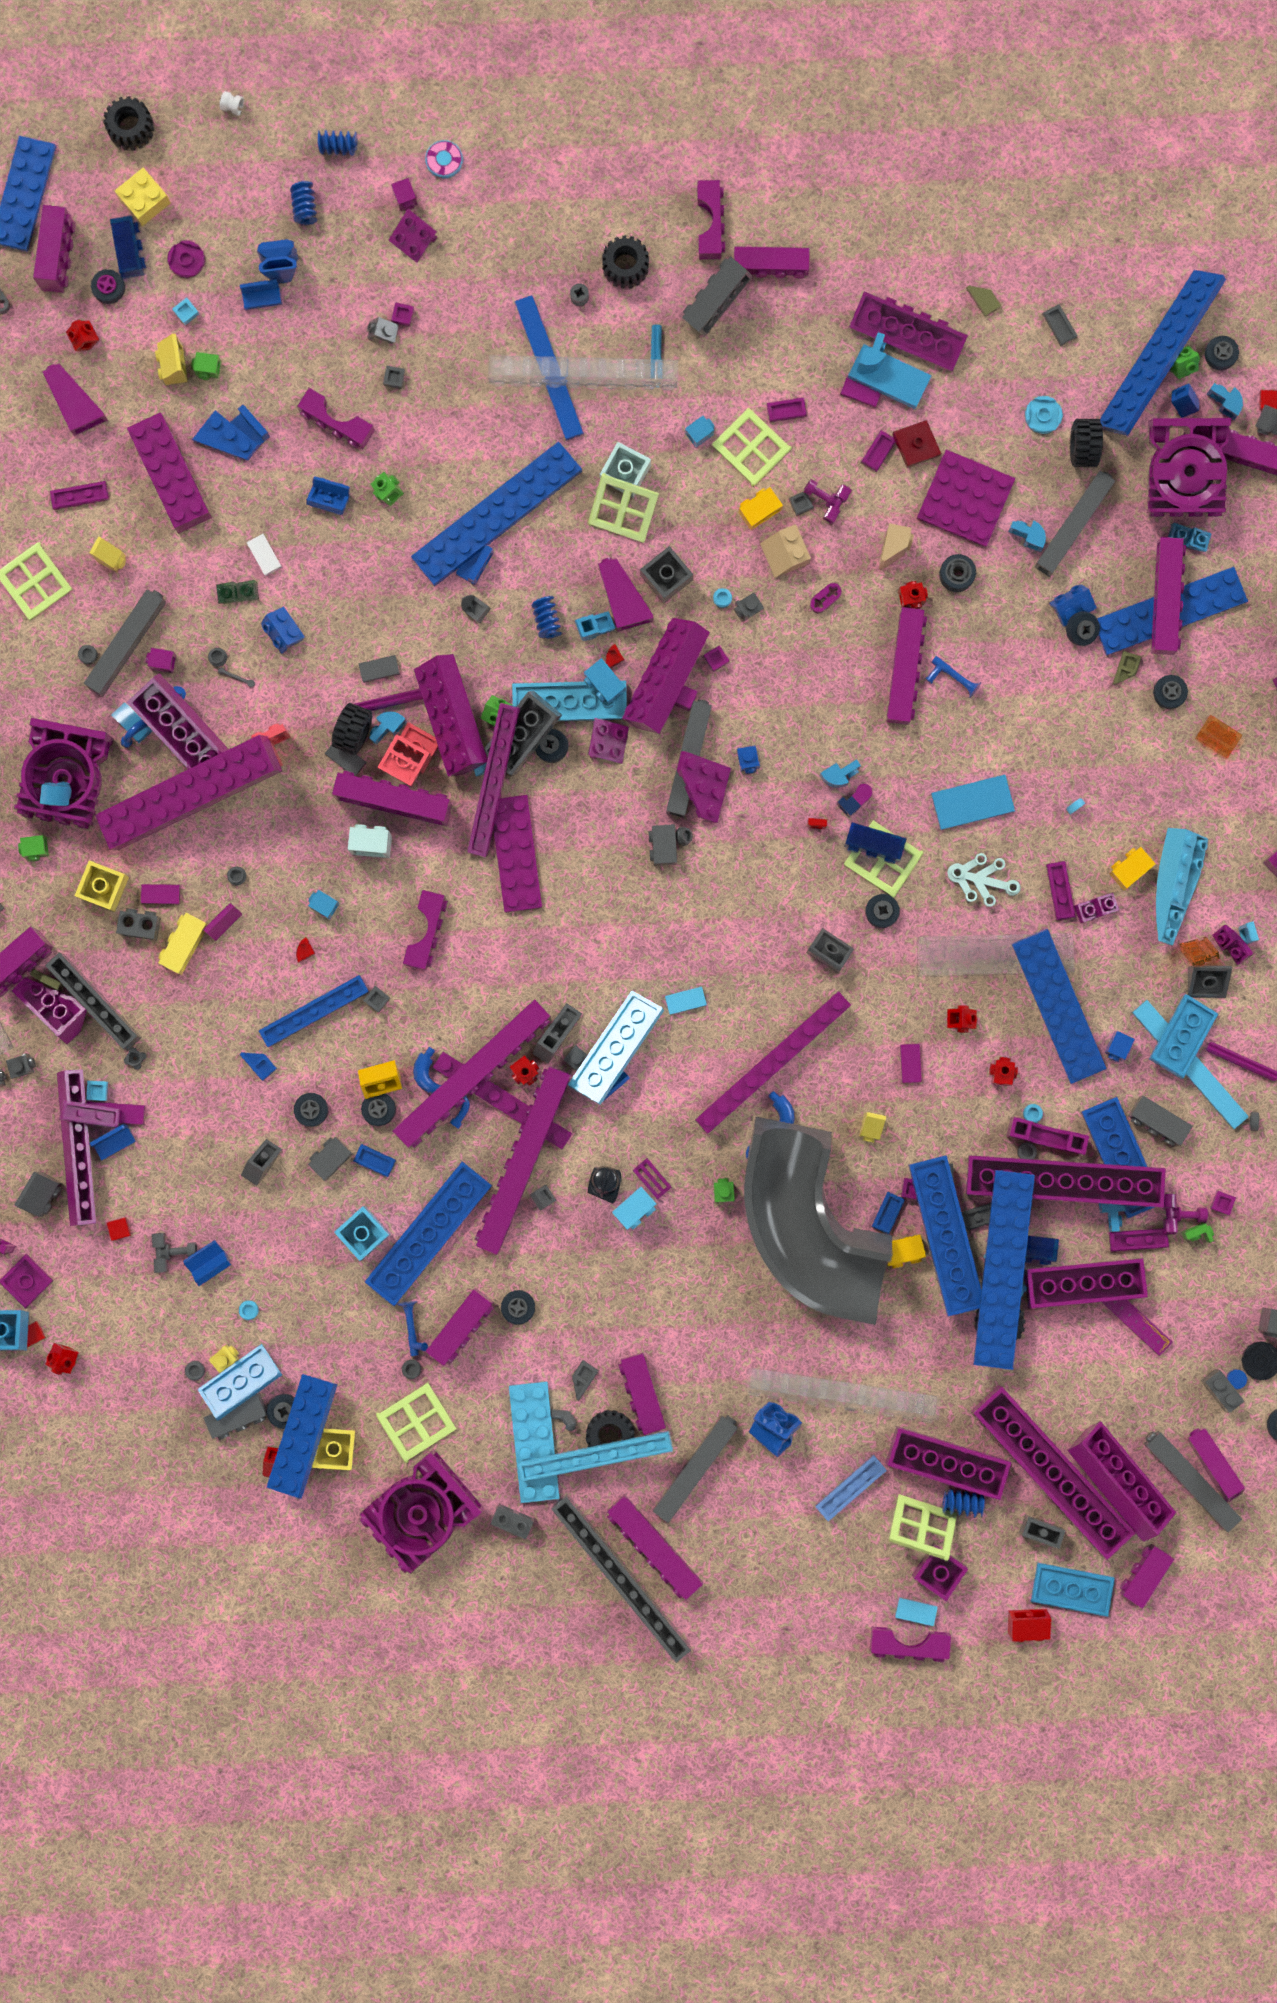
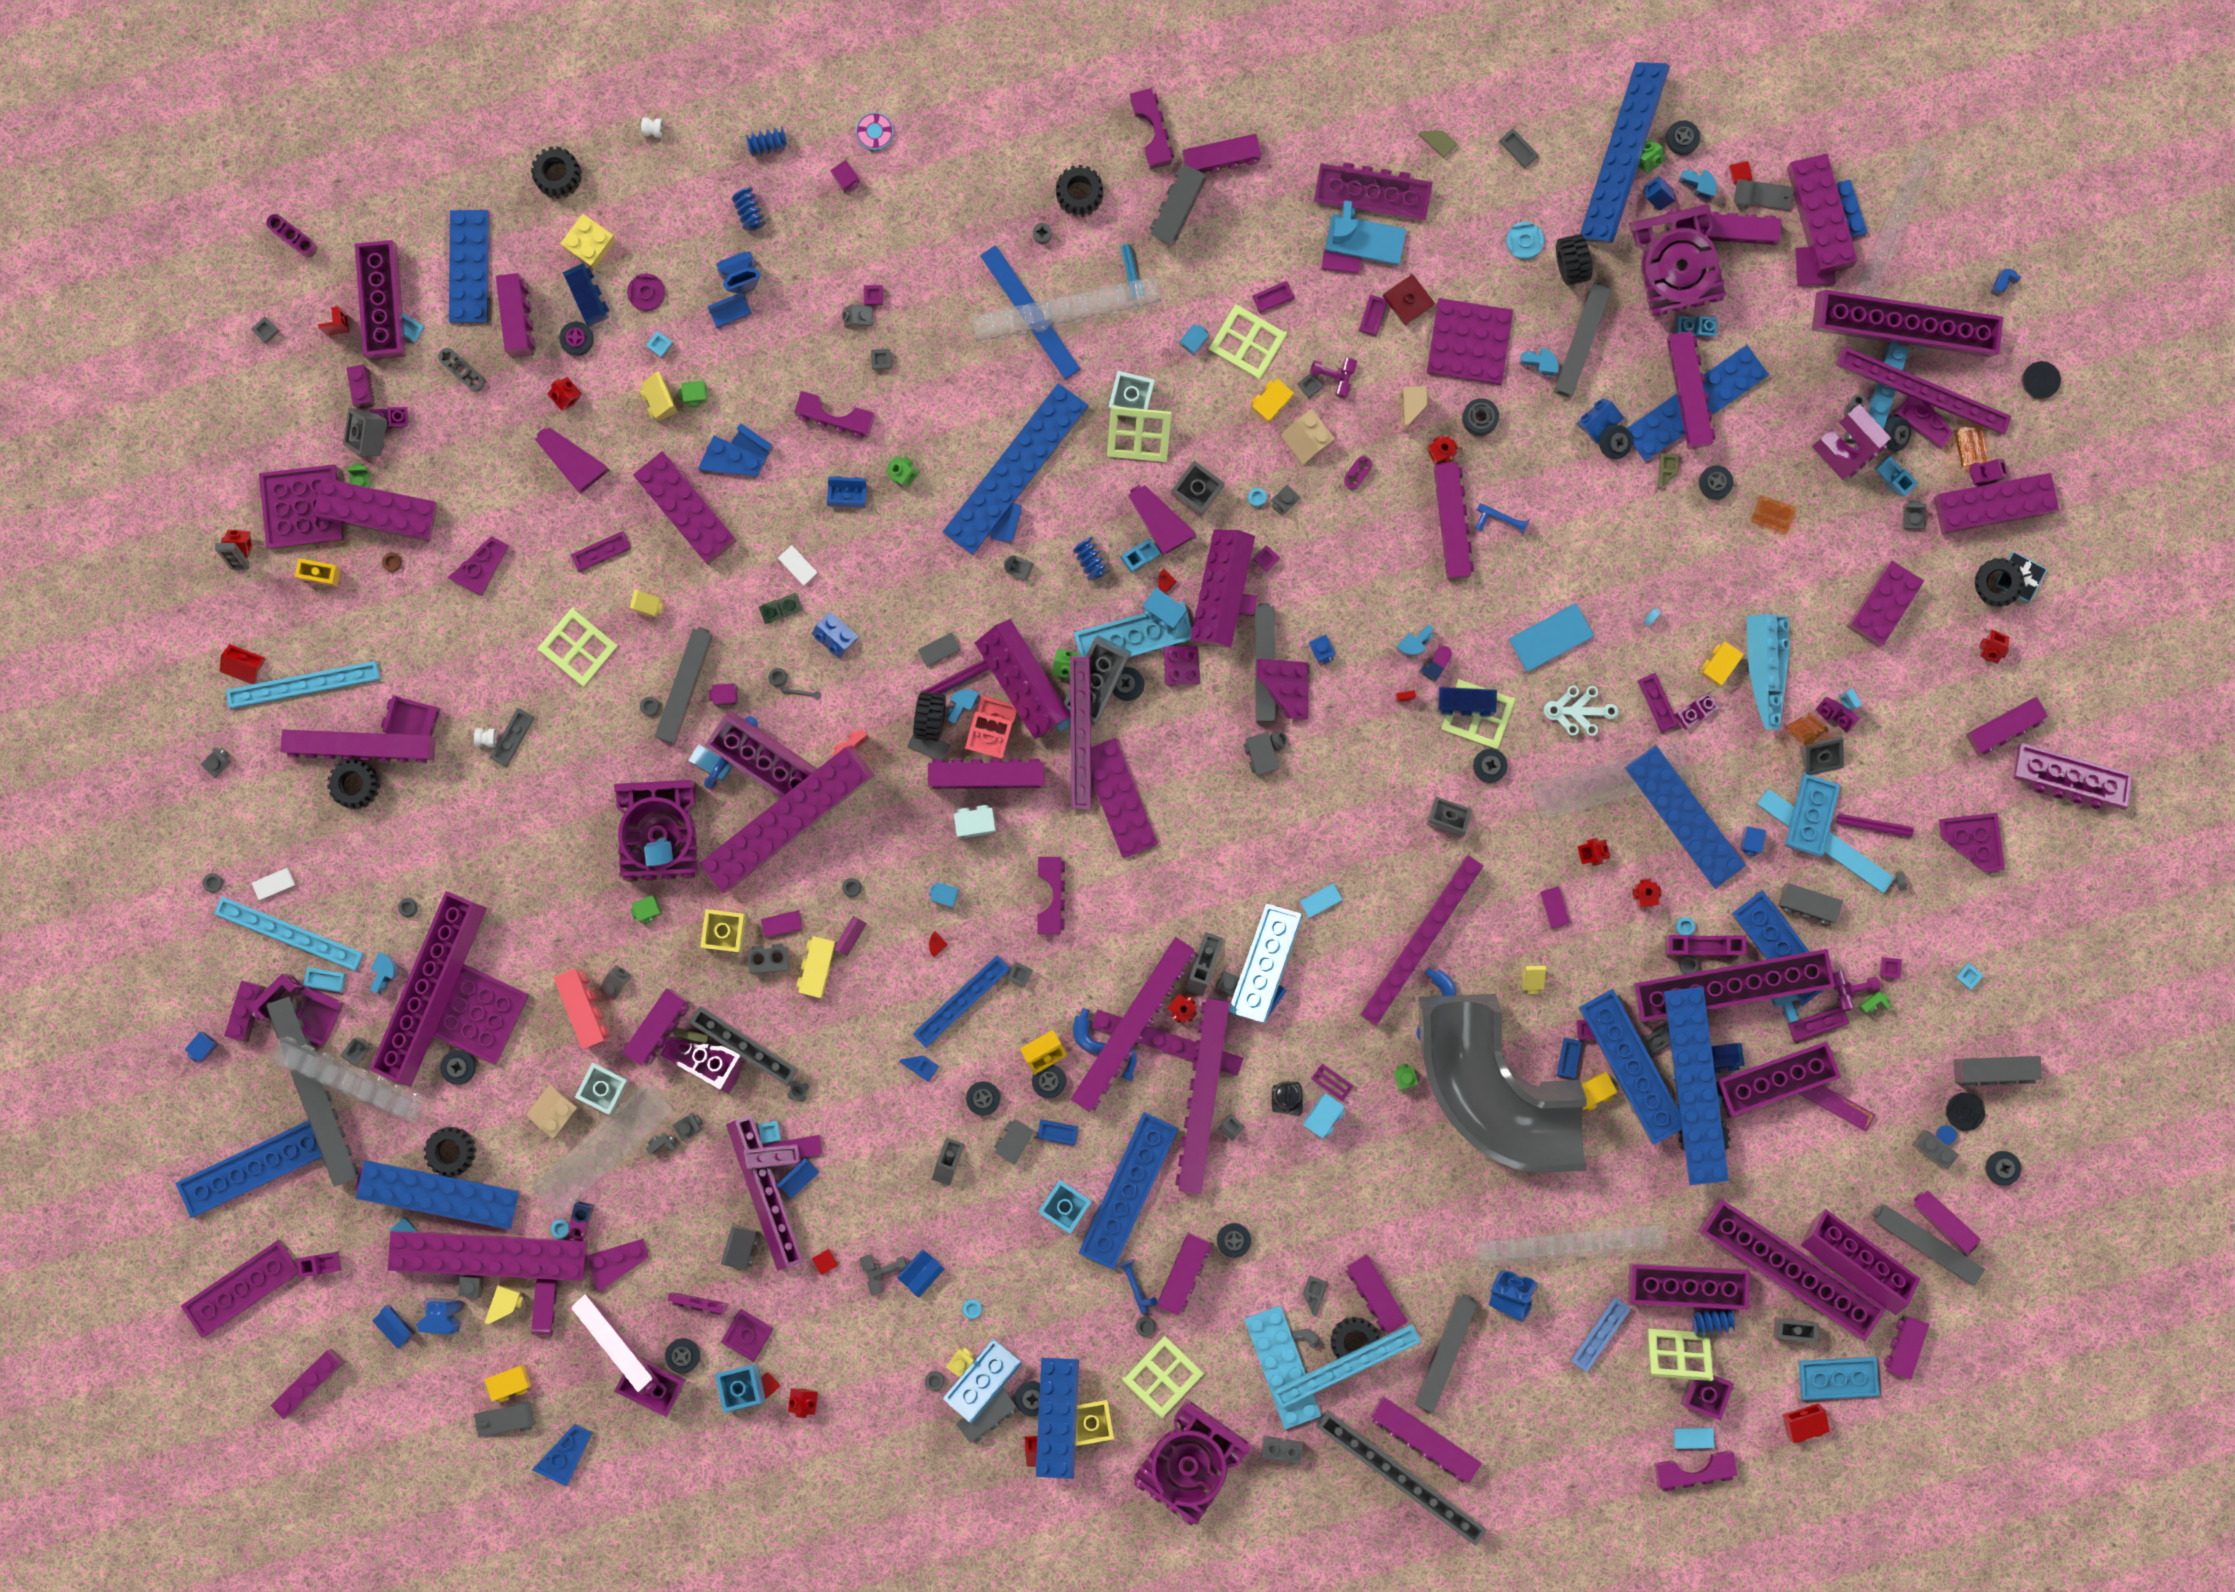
camera: 15 degrees left, 0 degrees up
(413, 235) = (863, 215): magenta hinge -> none

